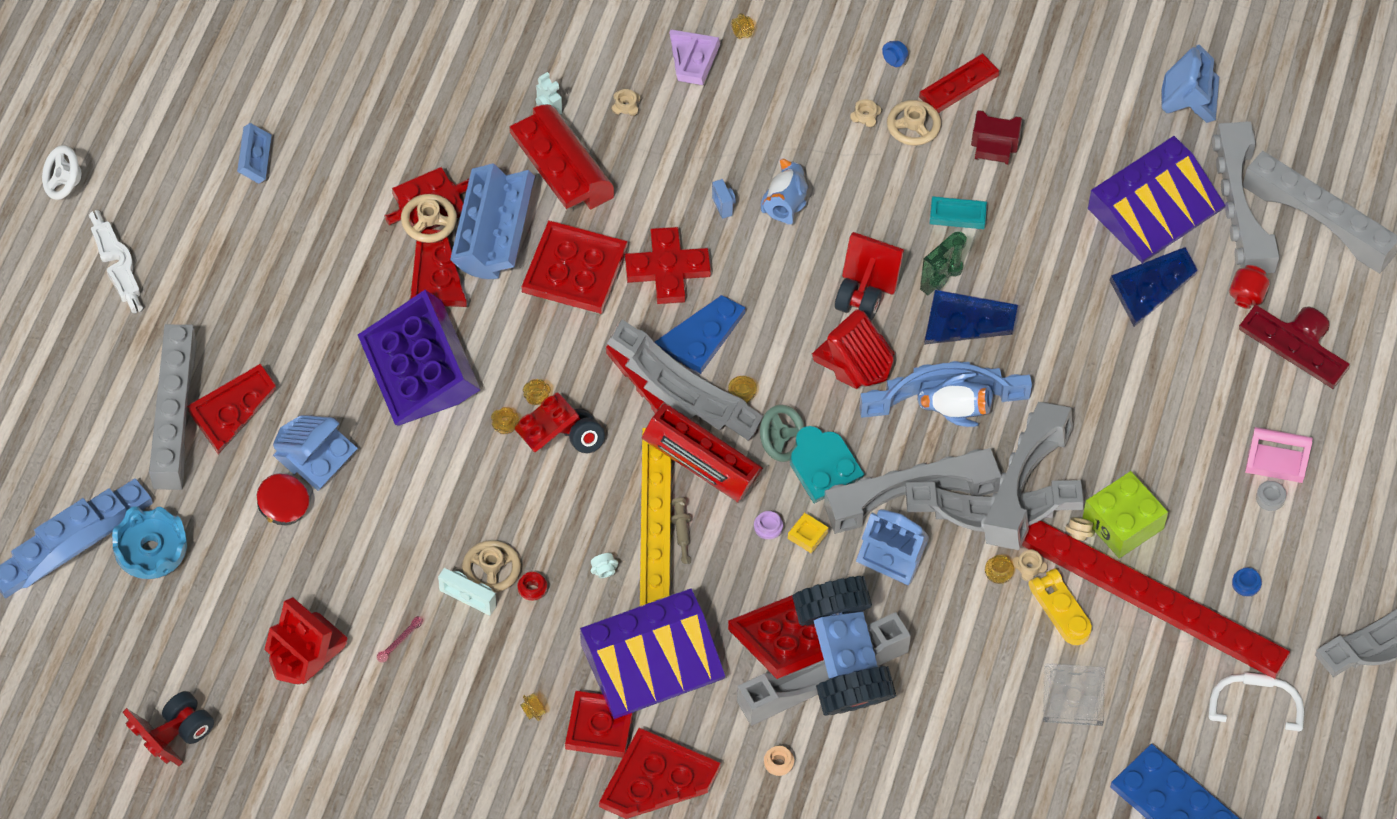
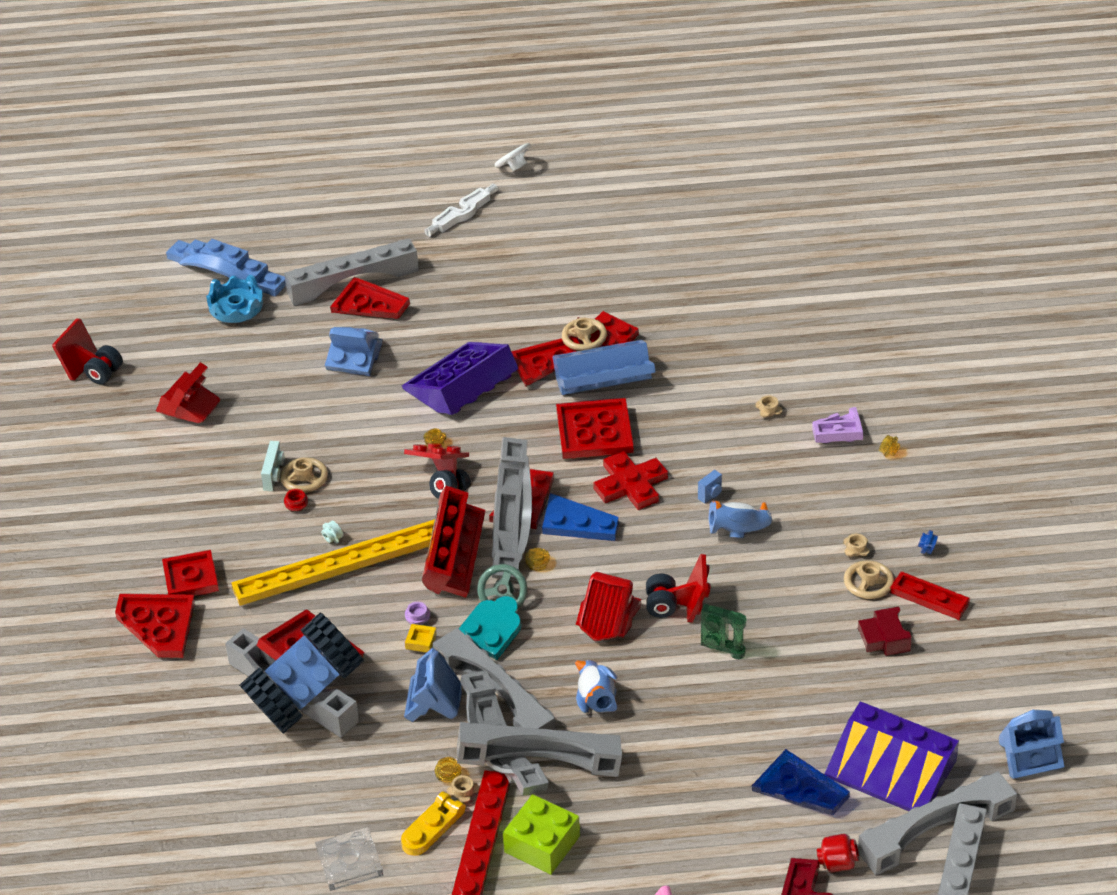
camera: 70 degrees right, 15 degrees down
(254, 153) = (590, 236): medium blue plate -> none
(282, 499) = (303, 349): red piece -> none
(382, 656) = (236, 452): clear pink hinge -> none
(532, 707) = (190, 534): clear yellow plate -> none
(536, 391) = (469, 444): clear yellow plate -> none
(548, 93) = (740, 359): light aqua plate -> none
(561, 158) = (686, 385): red brick -> none
(651, 653) = (256, 574): dark purple slope -> none
(681, 521) = (389, 565): dark tan piece -> none
(782, 753) = (202, 688): light nougat plate -> none
(927, 376) = (589, 649): medium blue piece -> none
(958, 212) = (794, 635): teal tile -> none
(968, 317) = (686, 671): clear blue wing -> none
(1079, 528) = (511, 807): tan plate -> none

